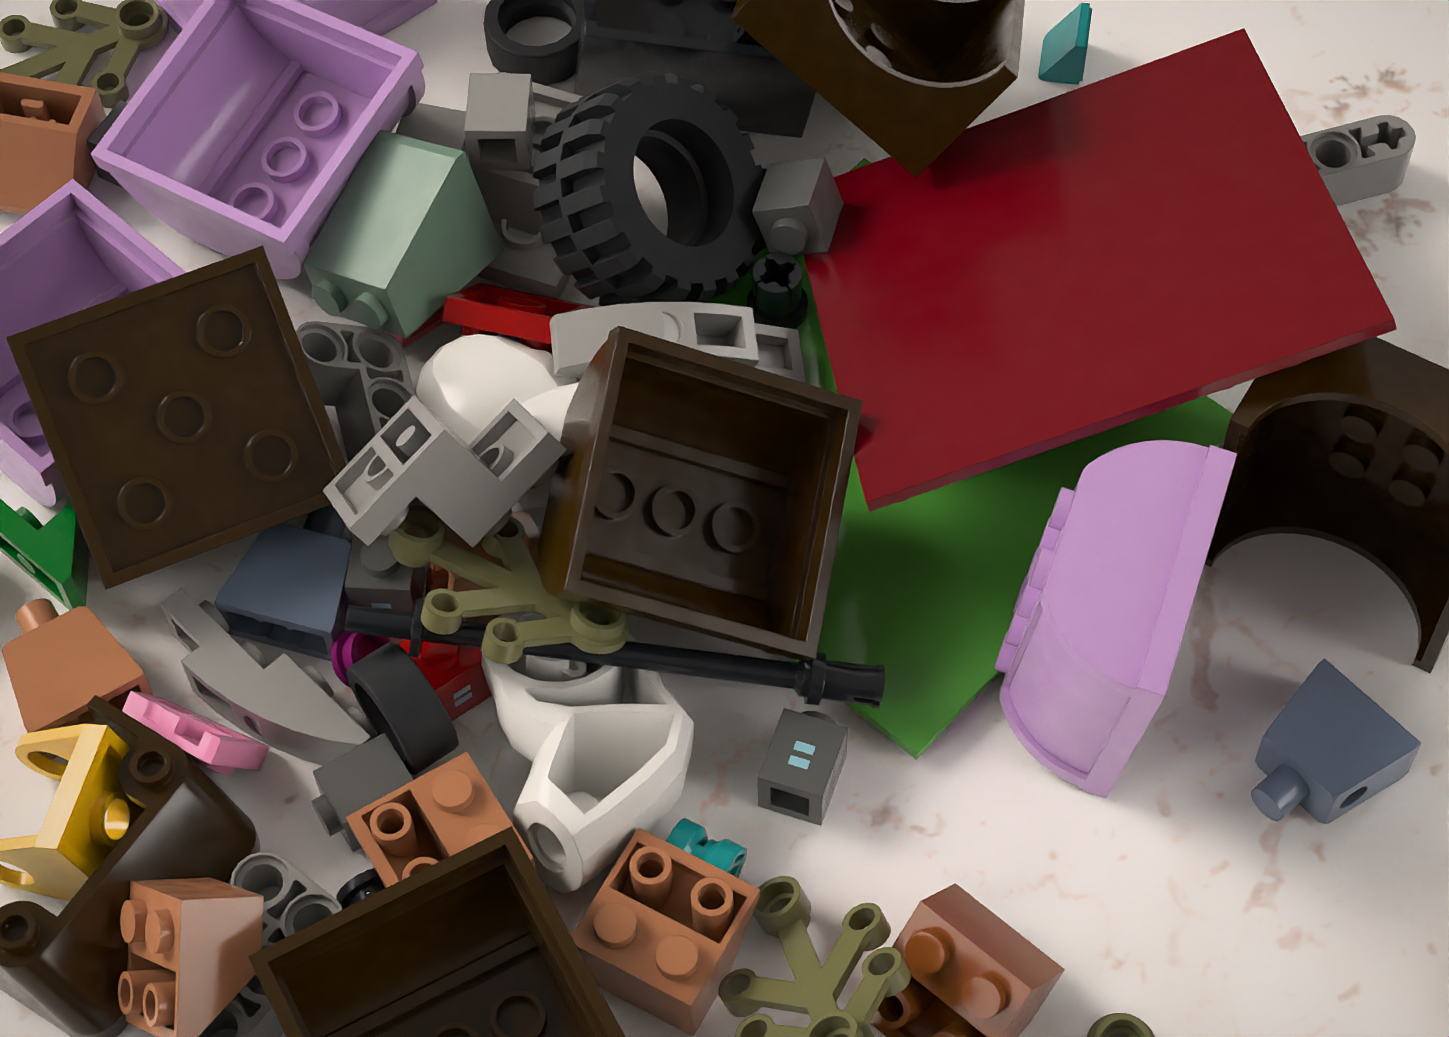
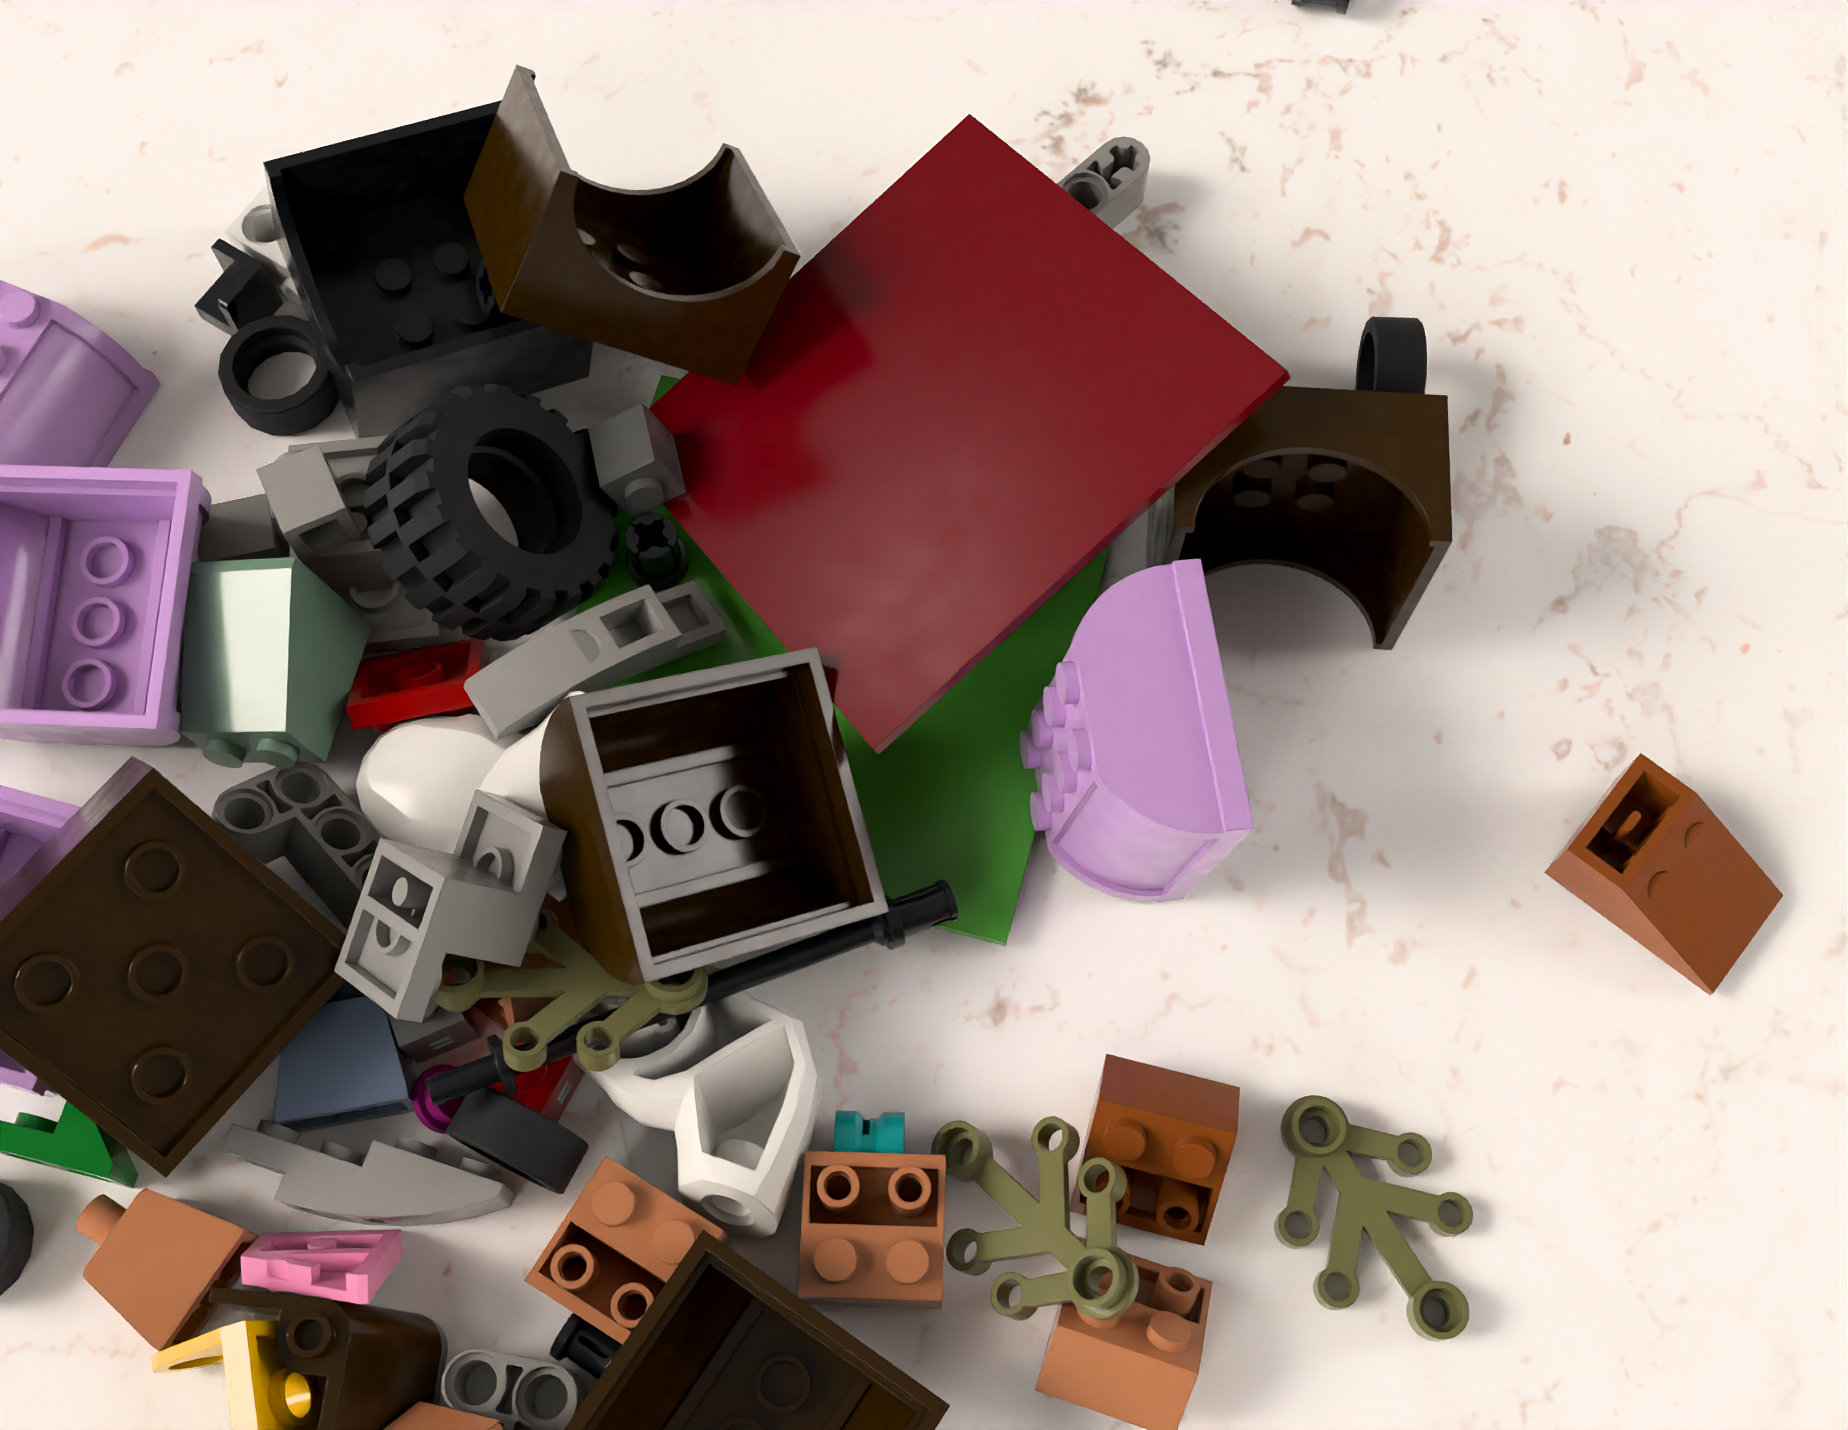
camera: 30 degrees left, 10 degrees up
(356, 782) = (515, 1233): dark grey brick -> none
(802, 765) = (912, 1003): dark grey brick -> none
(1066, 48) = (791, 183): teal slope -> none
(1330, 750) = (1351, 766): sand blue torso -> none

